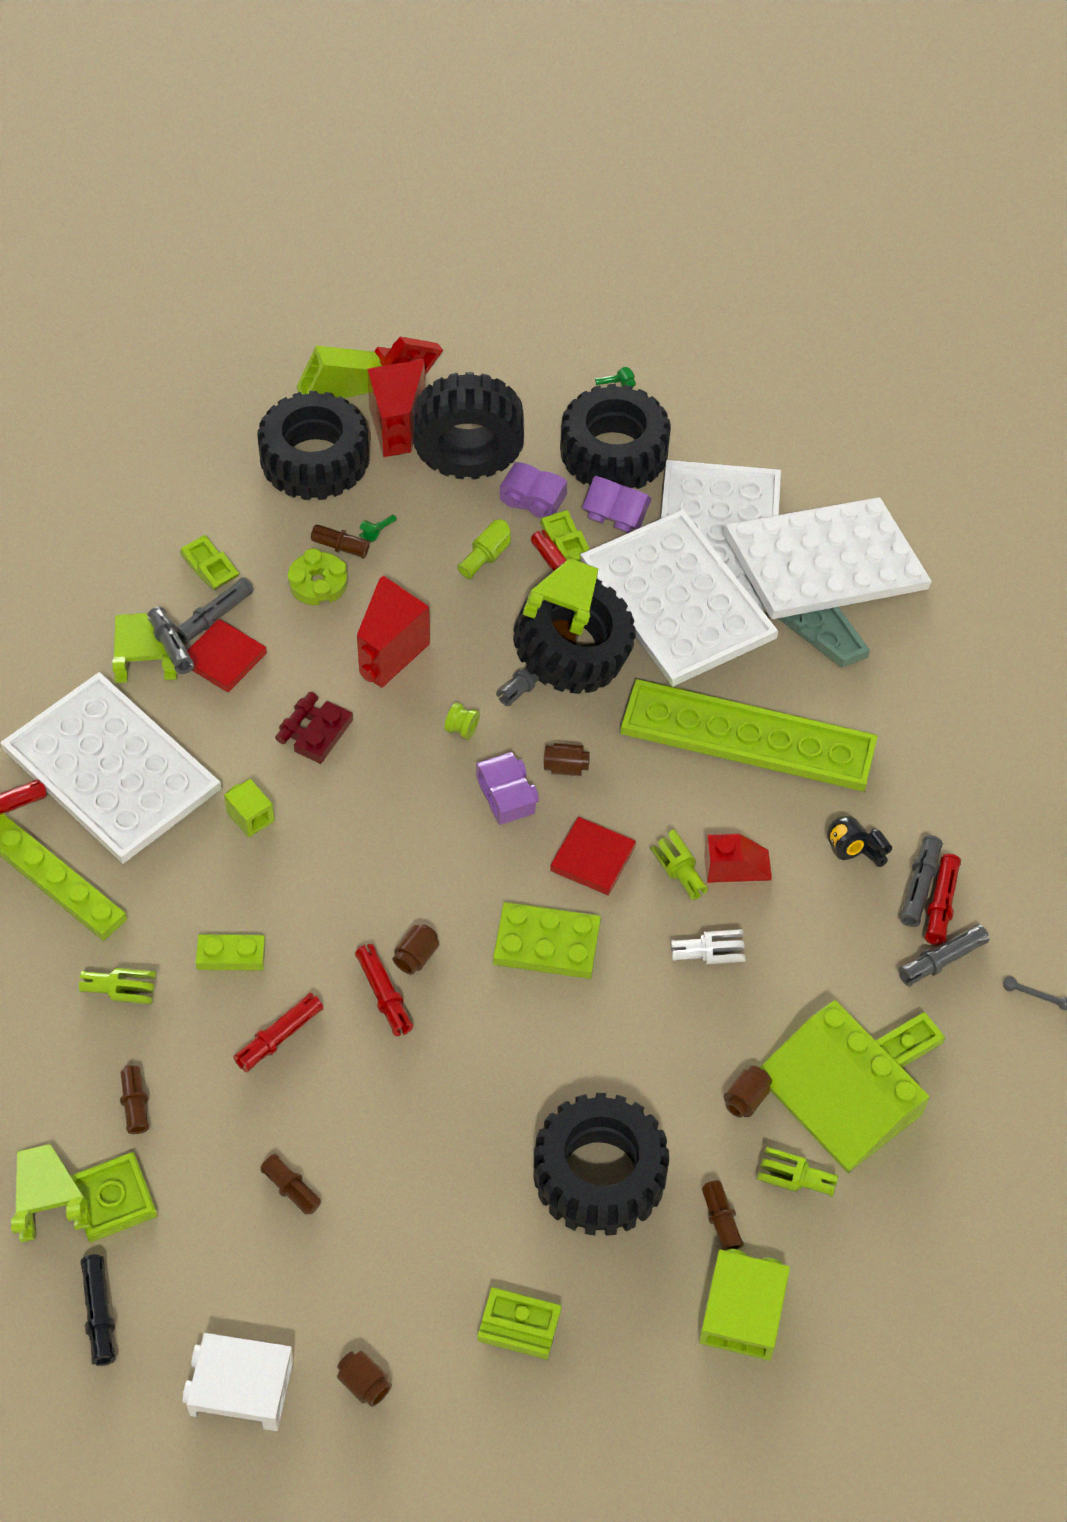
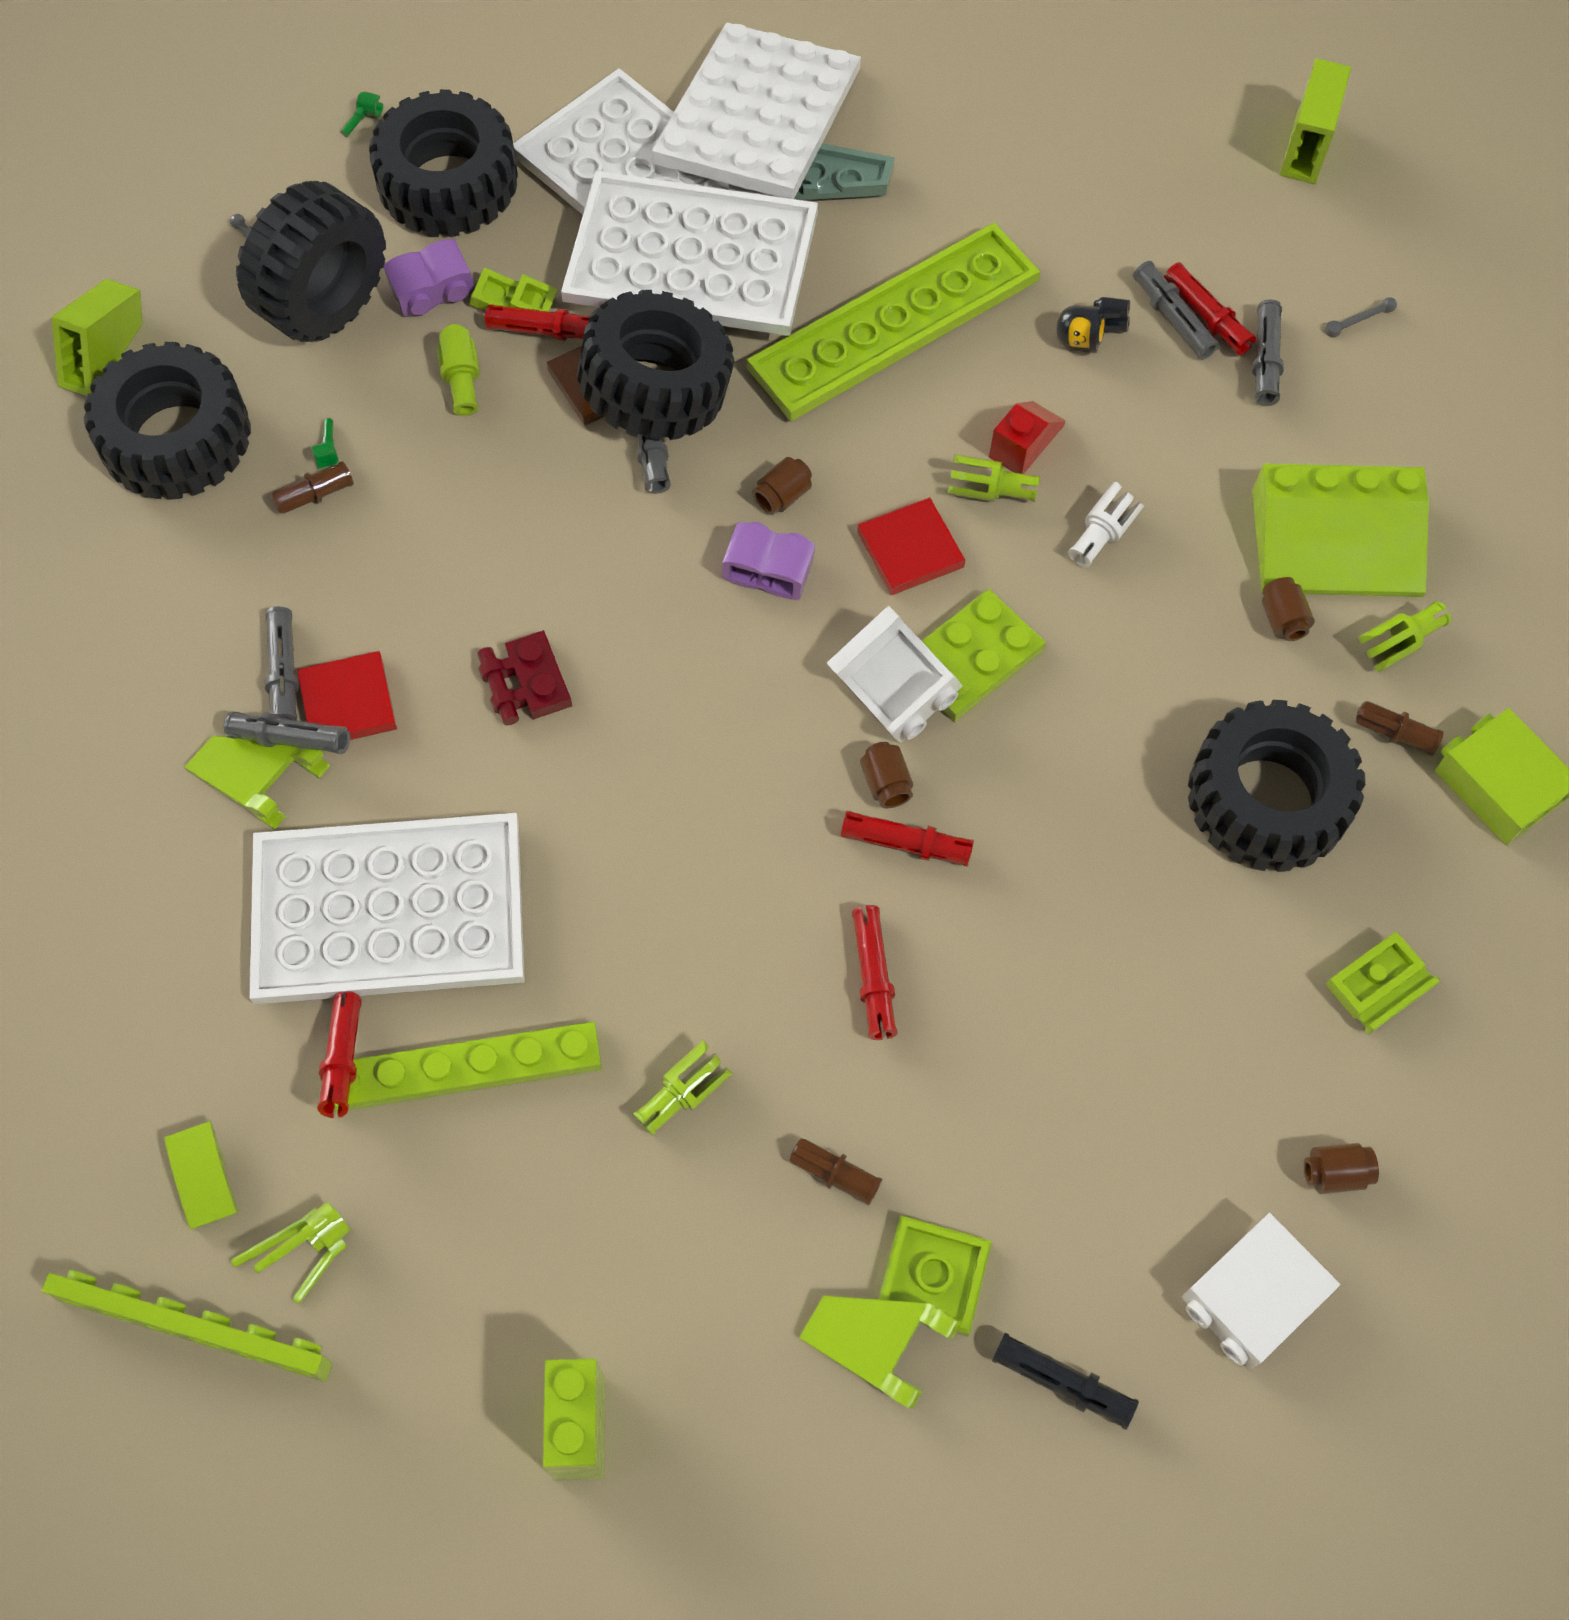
camera: 50 degrees left, 10 degrees up
(208, 563) = (202, 630): lime slope -> none
(230, 952) = (732, 952): lime plate -> none
(249, 807) = (572, 808): lime brick -> none
(290, 1184) = (1064, 1085): reddish brown axle -> none
(313, 564) = (329, 522): lime plate -> none
(391, 632) = (484, 519): red slope -> none
(392, 403) = (198, 308): red slope -> none
(409, 349) = (146, 252): red bracket -> none
(462, 721) = (651, 540): lime wheel -> none
(486, 904) = (895, 675): none -> white panel
(569, 587) = (624, 320): lime flag -> none
(616, 504) = (523, 222): medium lavender brick -> none
(912, 1039) = (1336, 438): lime plate -> none

